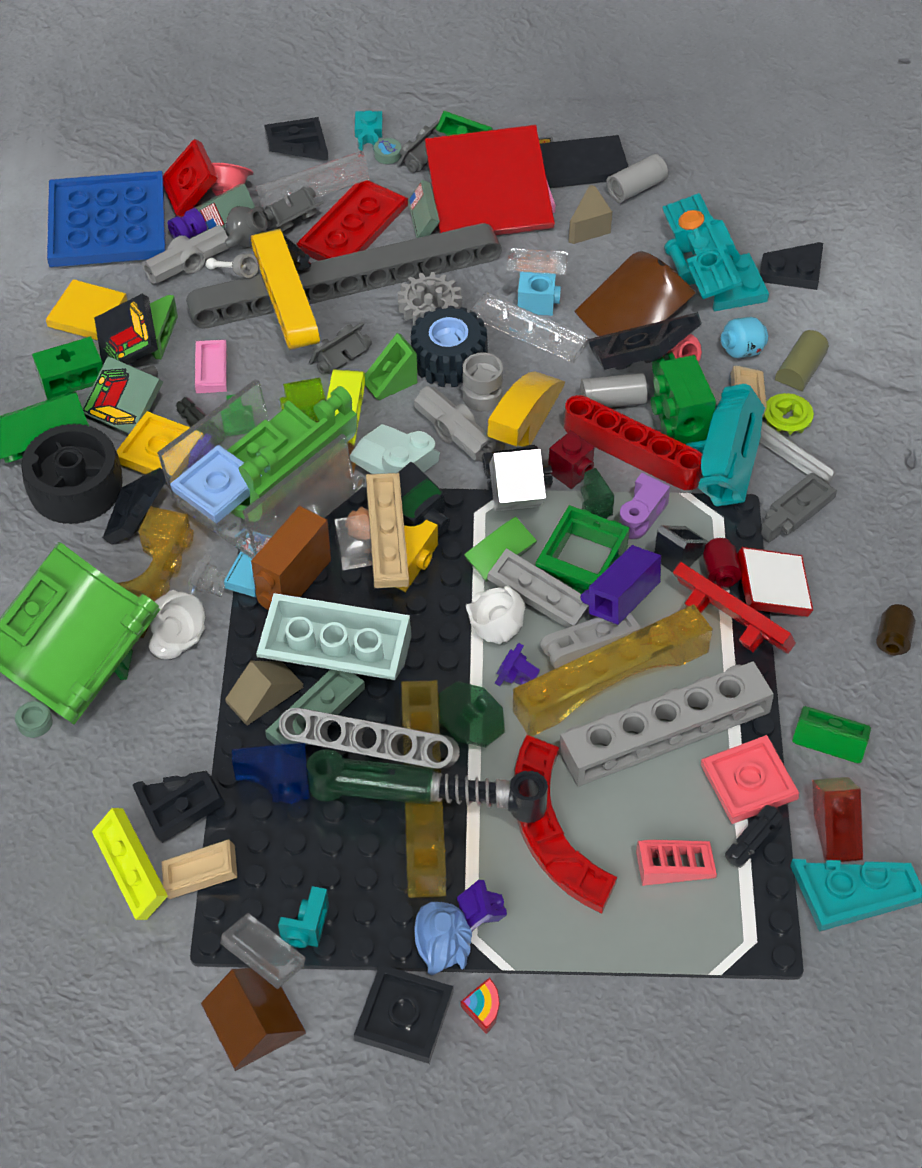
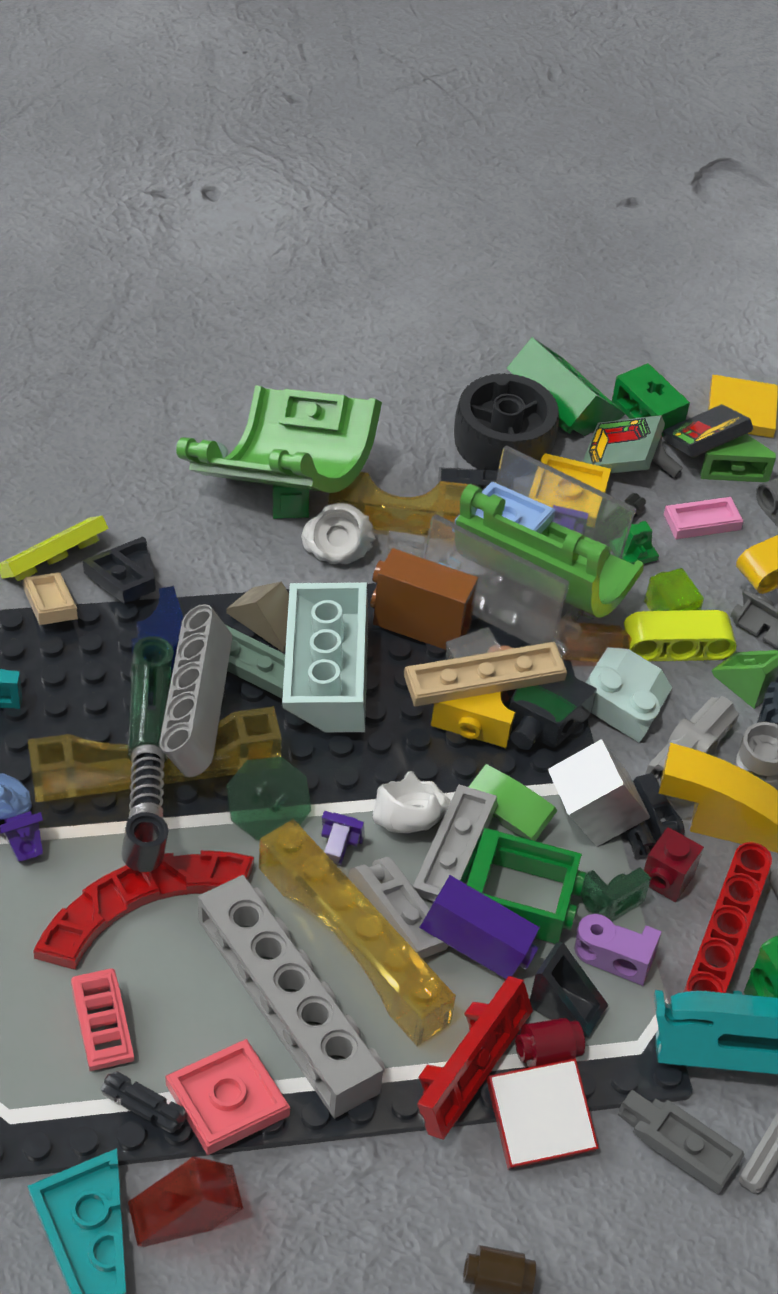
camera: 75 degrees right, 5 degrees down
(832, 734) = (322, 1202): green slope -> none

